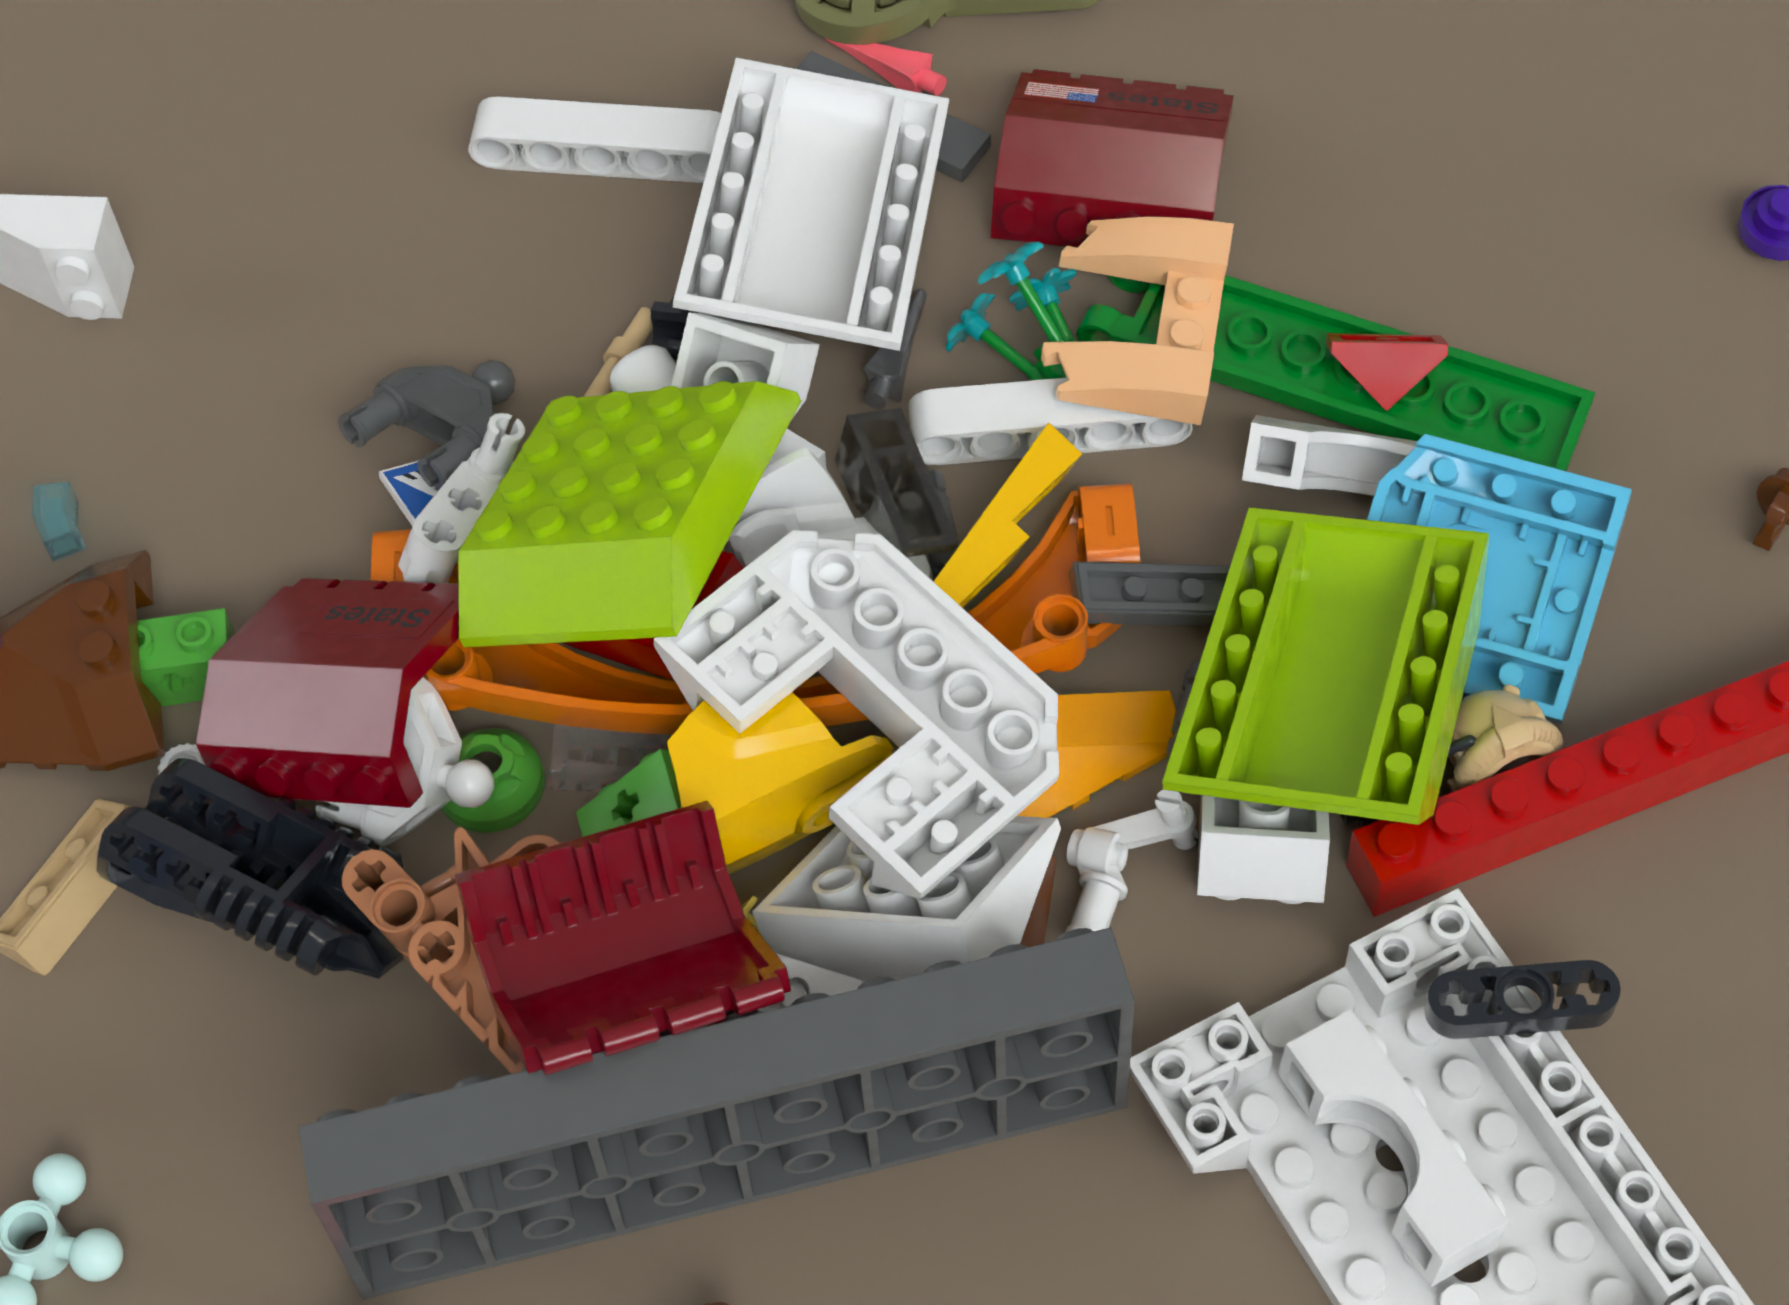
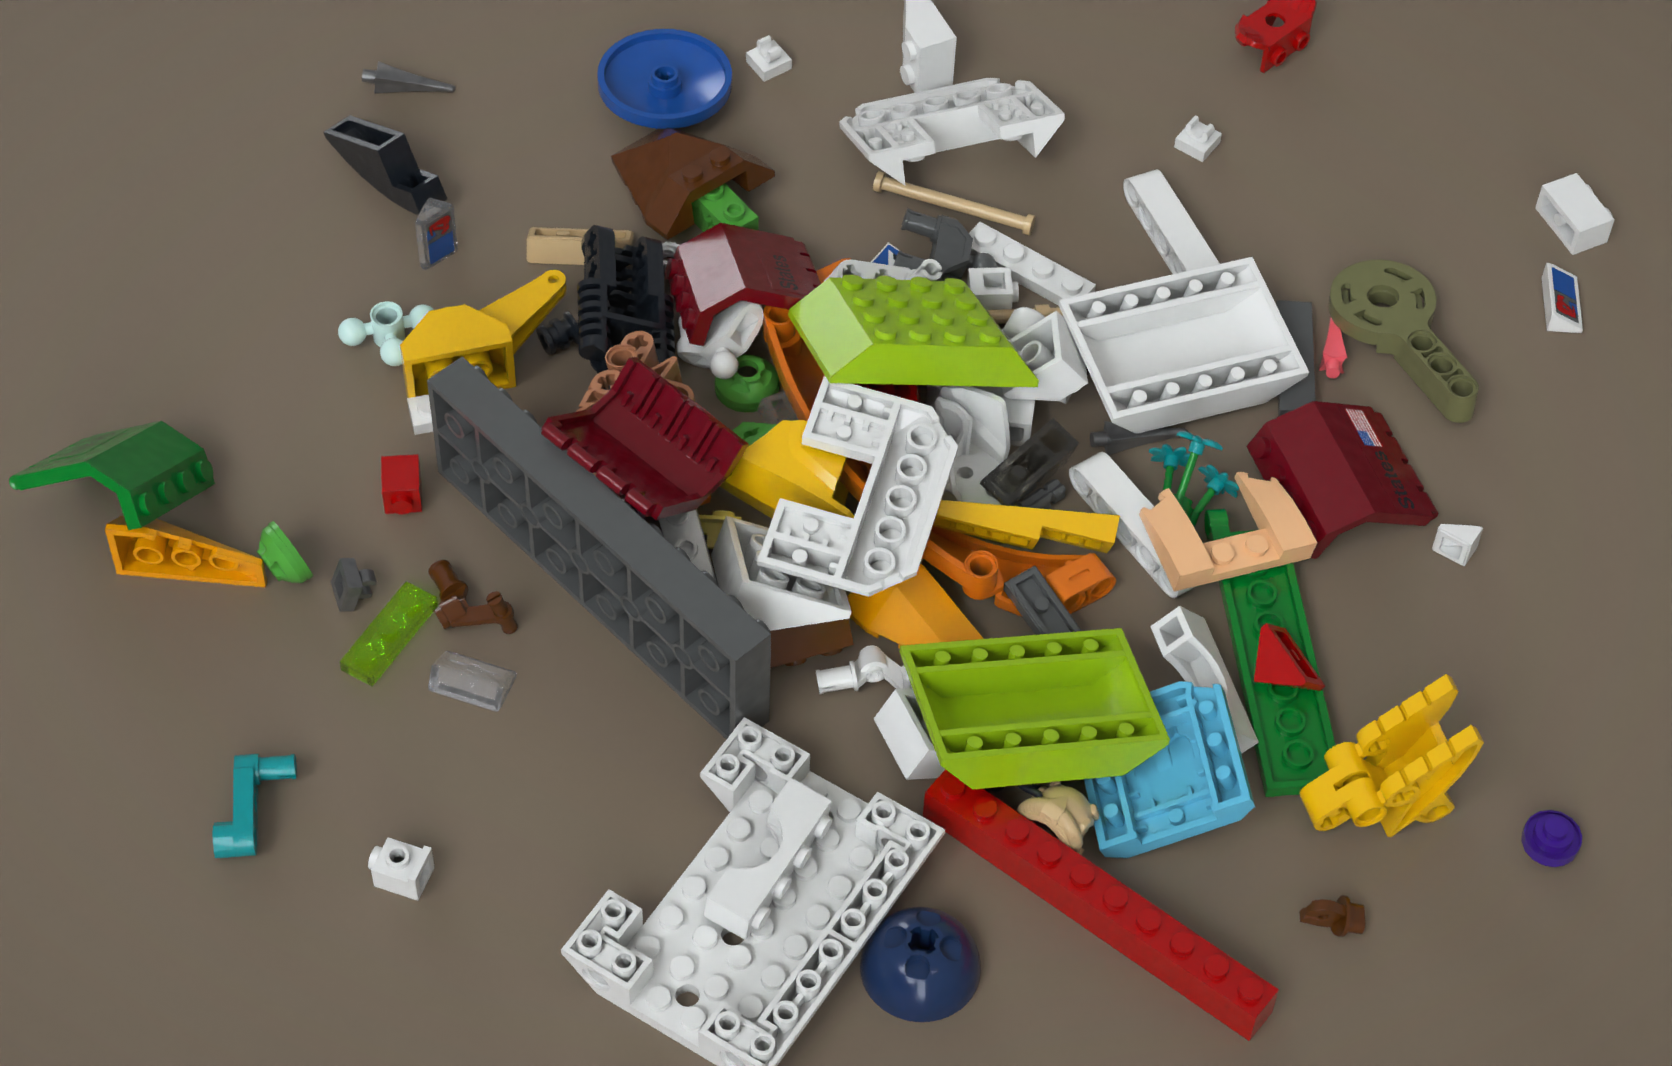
camera: 55 degrees right, 5 degrees down
(57, 519) = (775, 131): clear light blue piece -> none
(186, 324) = (950, 119): none -> white slope
(186, 1122) = (481, 336): none -> yellow slope
(229, 990) = (558, 333): none -> black bush
(244, 1259) = (420, 414): none -> white plate
(351, 365) = (954, 203): none -> tan bar
(451, 38) = (1198, 139): none -> white tile
(537, 327) = (1028, 266): none -> white plate
(539, 380) = (993, 287): none -> white brick
(1290, 90) = (1457, 541): none -> white slope
(1571, 1015) = (886, 895): black beam -> none
(1642, 313) = (1404, 769): none -> yellow piece
(1654, 1067) = (919, 981): none -> dark blue piece

